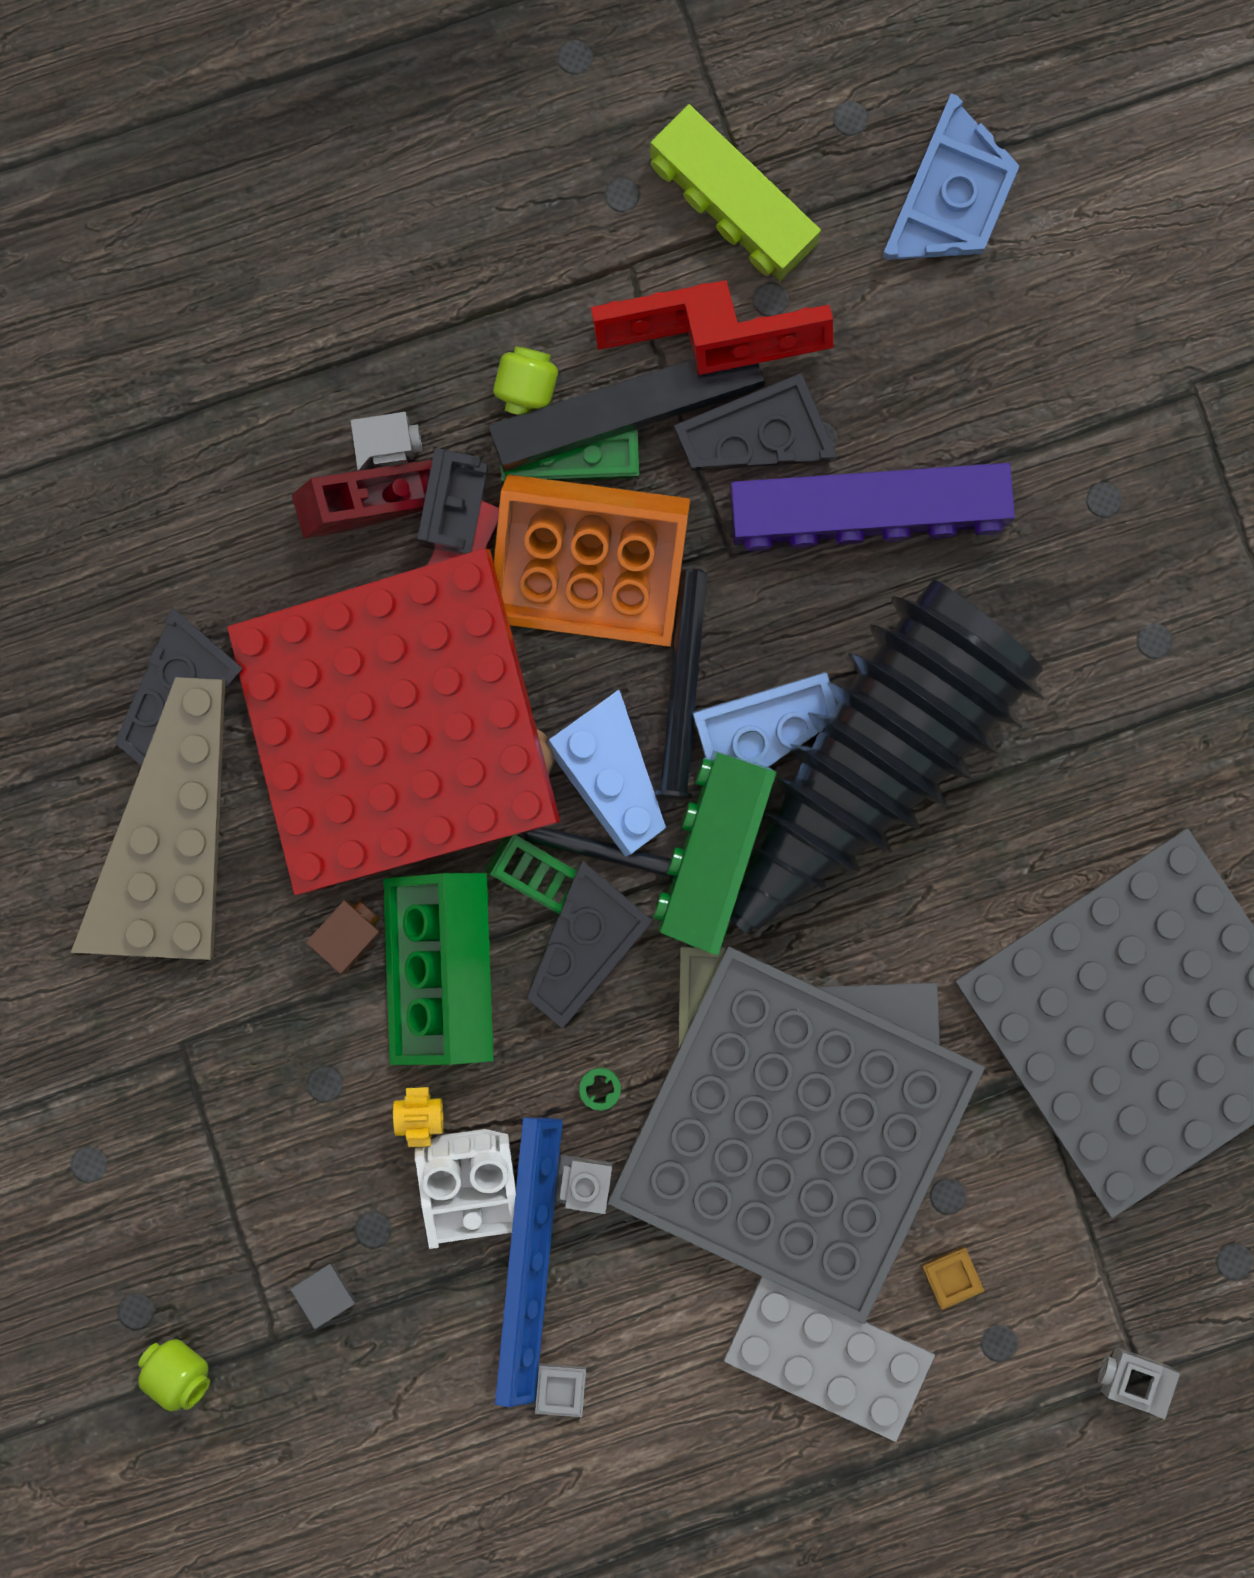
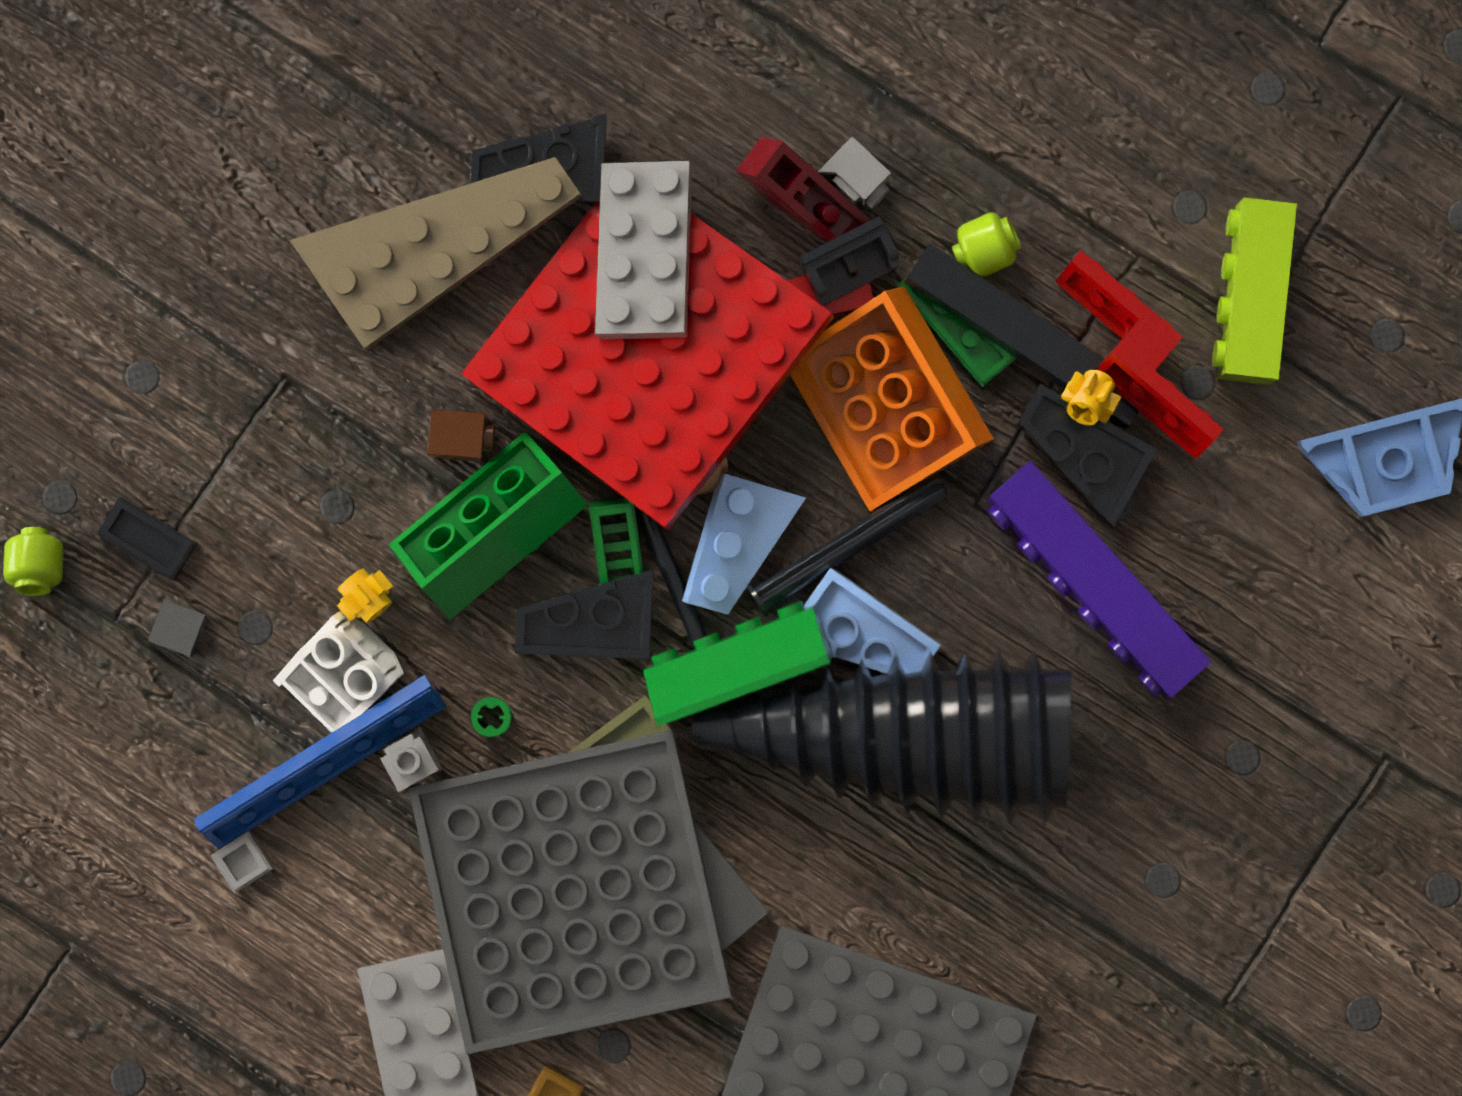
camera: 50 degrees right, 0 degrees up
(228, 1264) = (147, 538): none -> black tile
(311, 663) = (643, 250): none -> light grey plate
(718, 392) = (1090, 397): none -> yellow gear

